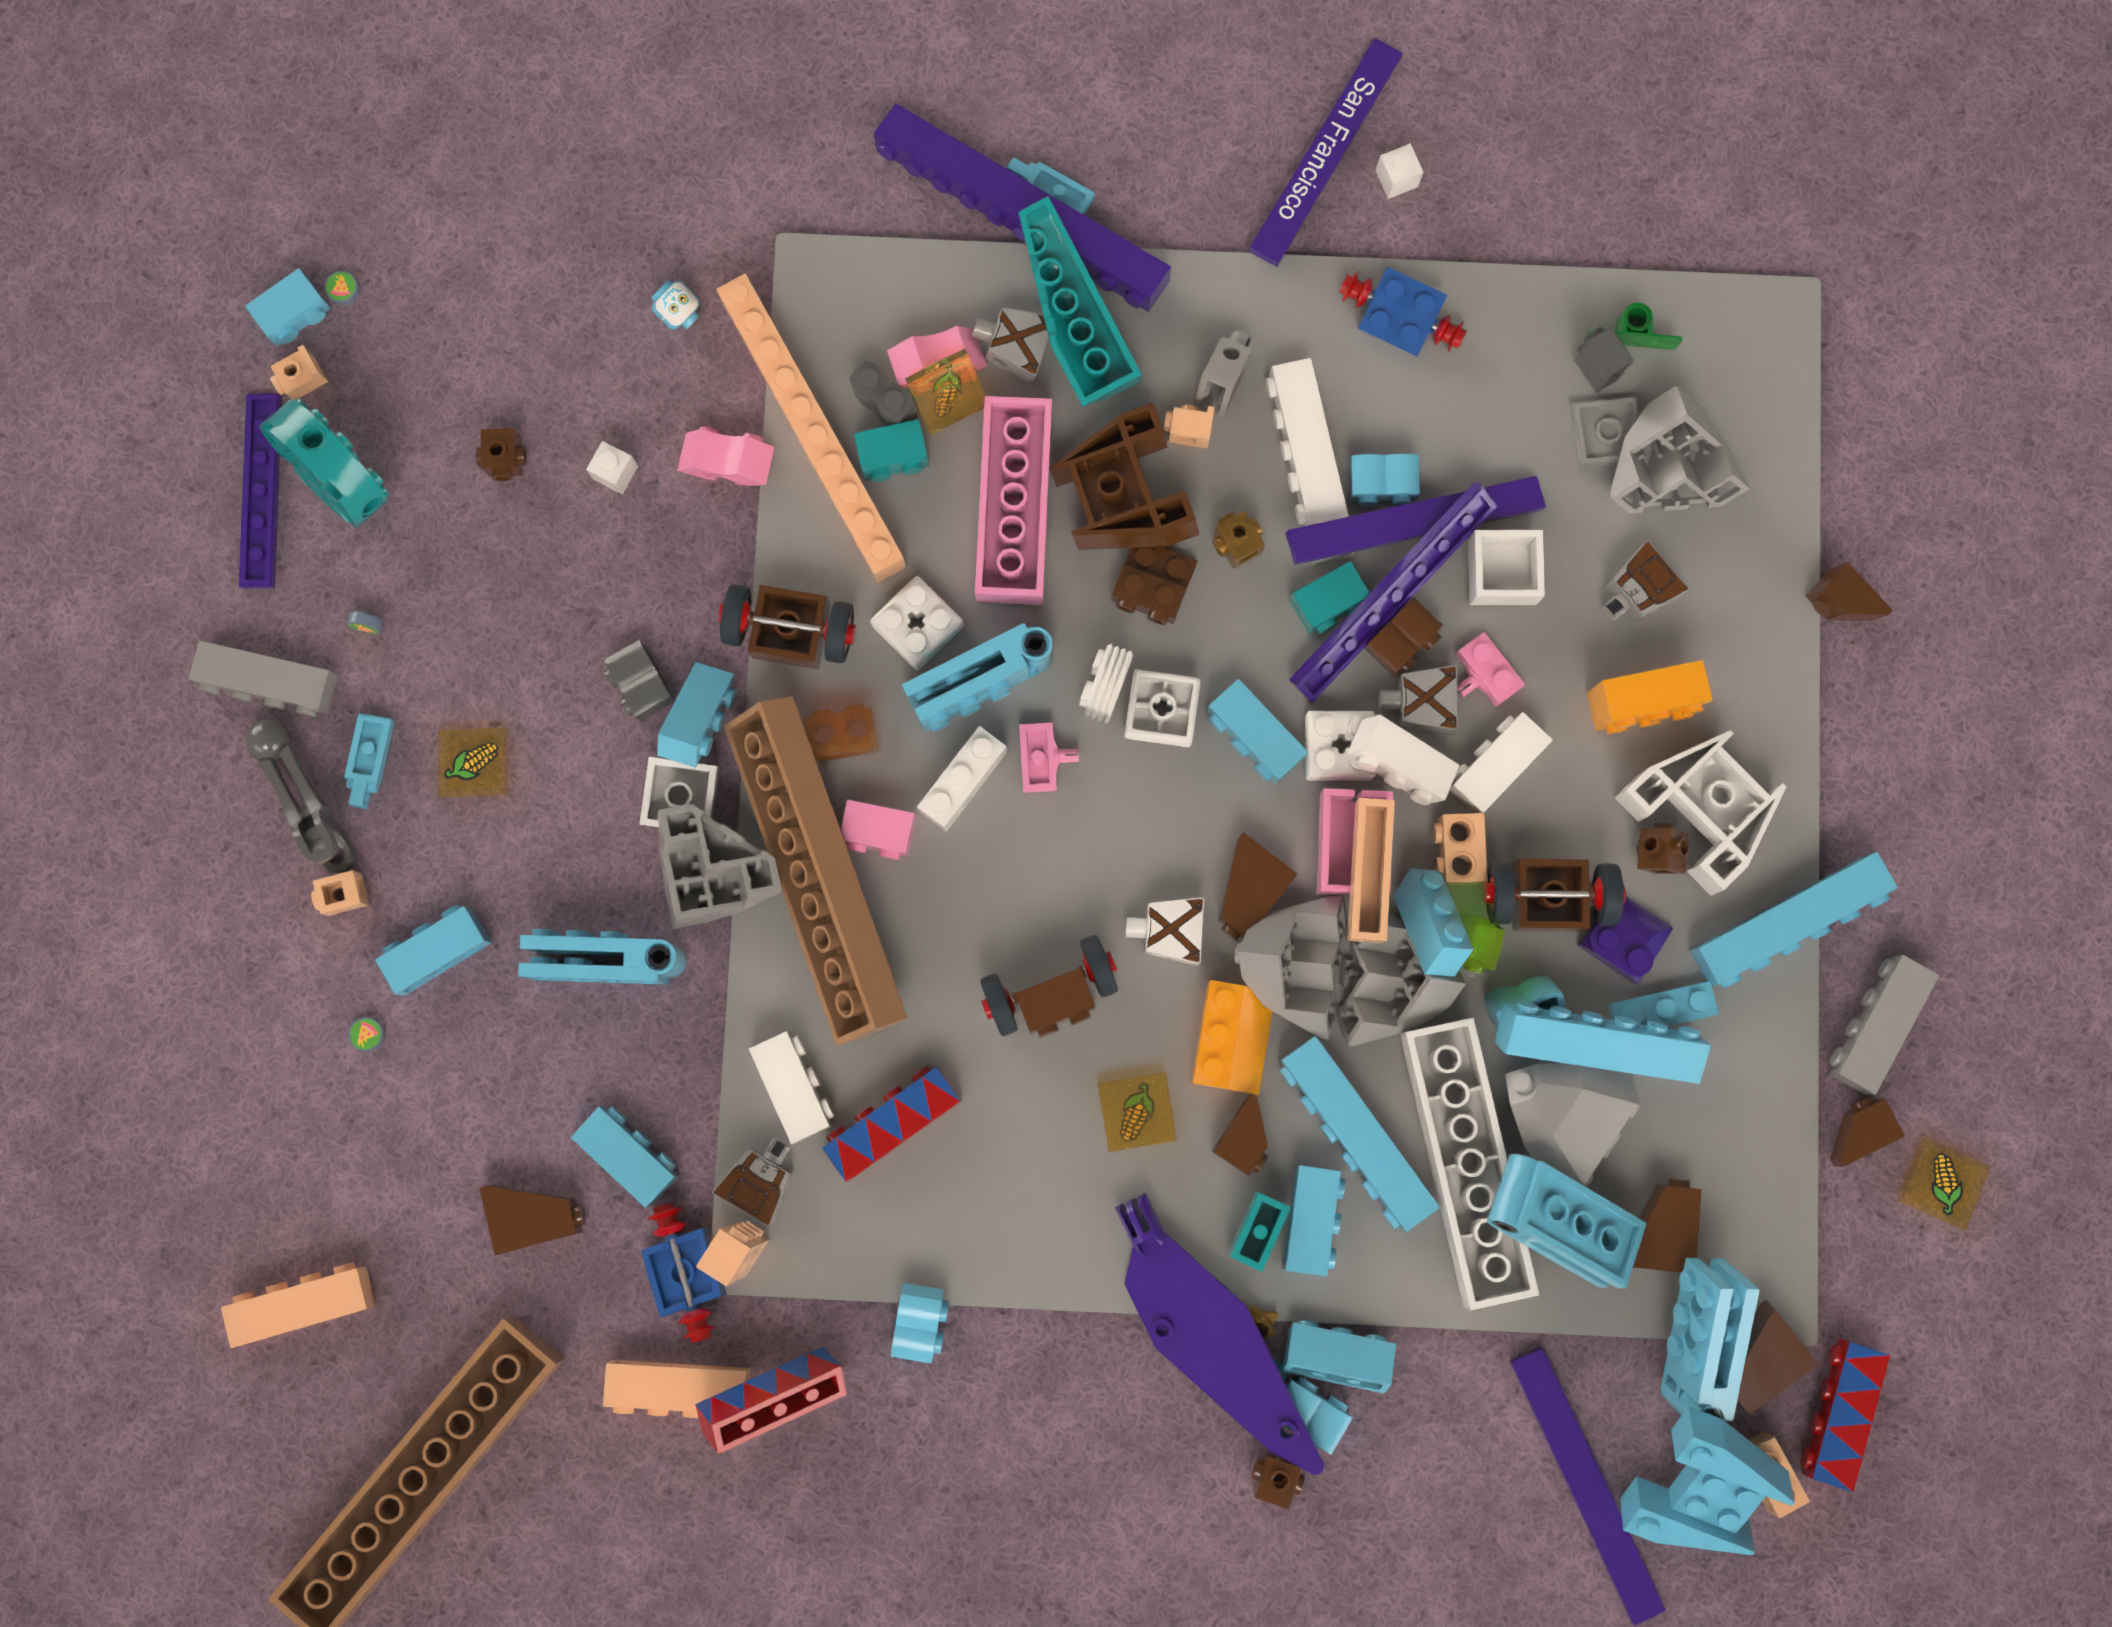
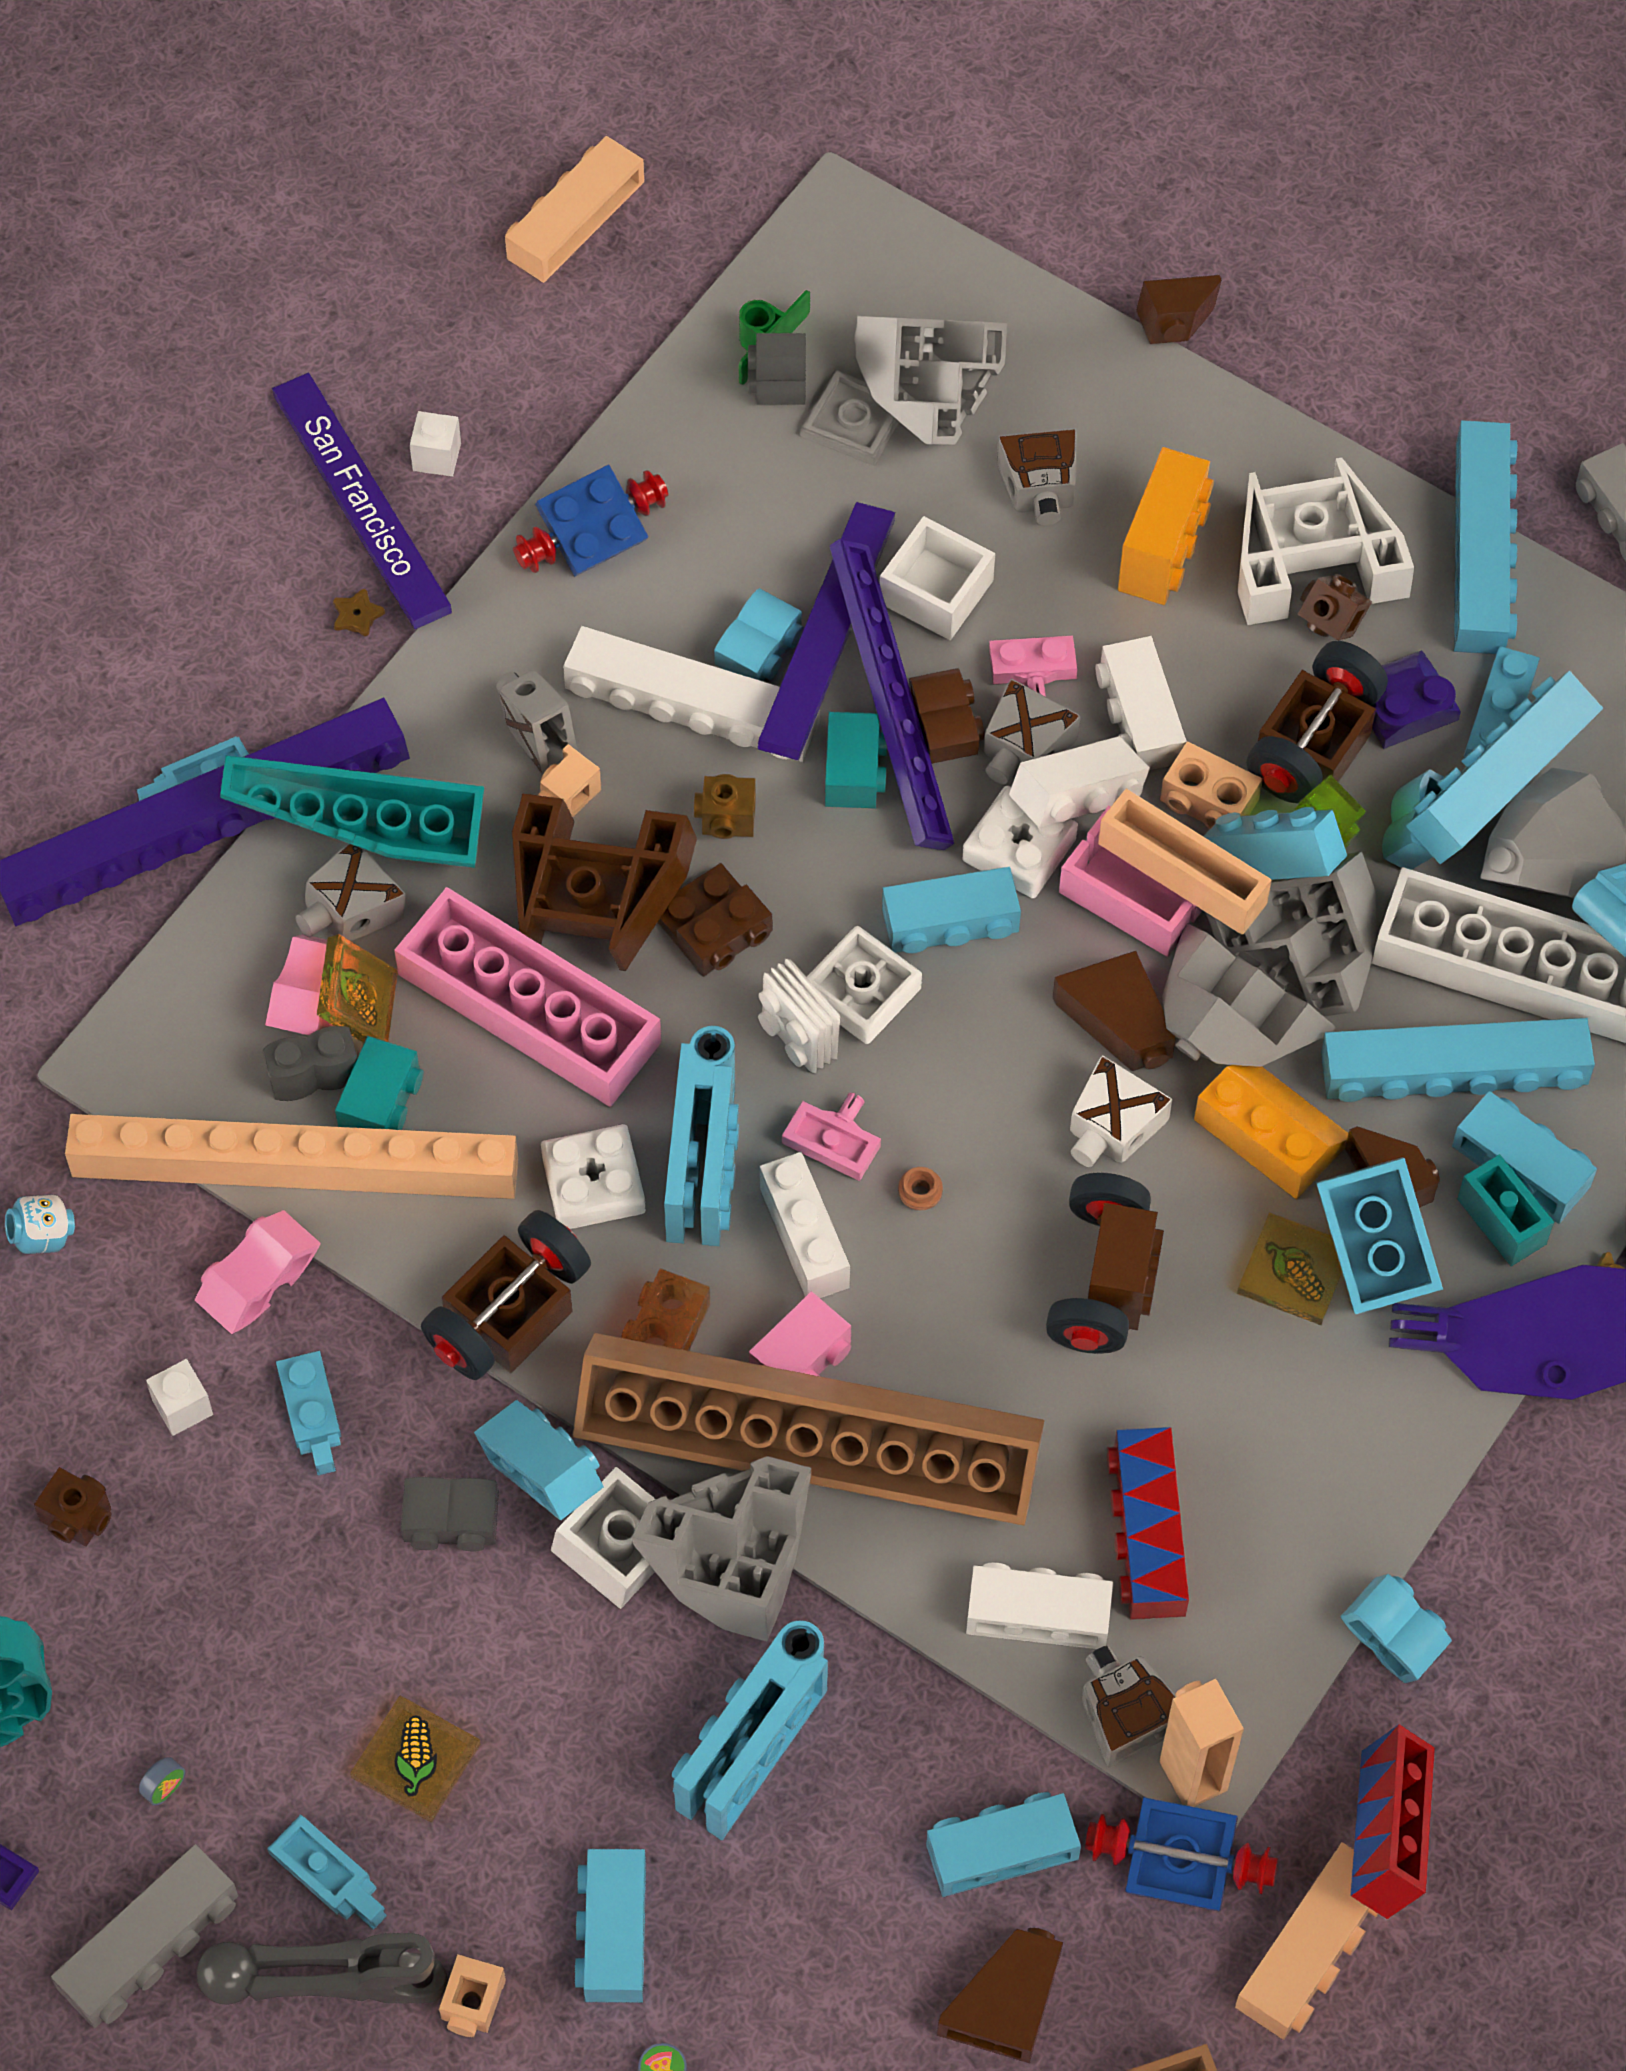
camera: 60 degrees left, 20 degrees down
(659, 551) = (310, 1408): none -> medium azure hinge
(1041, 824) = (920, 1177): none -> nougat plate
(1178, 1159) = (1379, 1235): none -> medium azure brick
(1239, 215) = (357, 623): none -> pearl gold plate
(1652, 139) = (574, 208): none -> light nougat brick

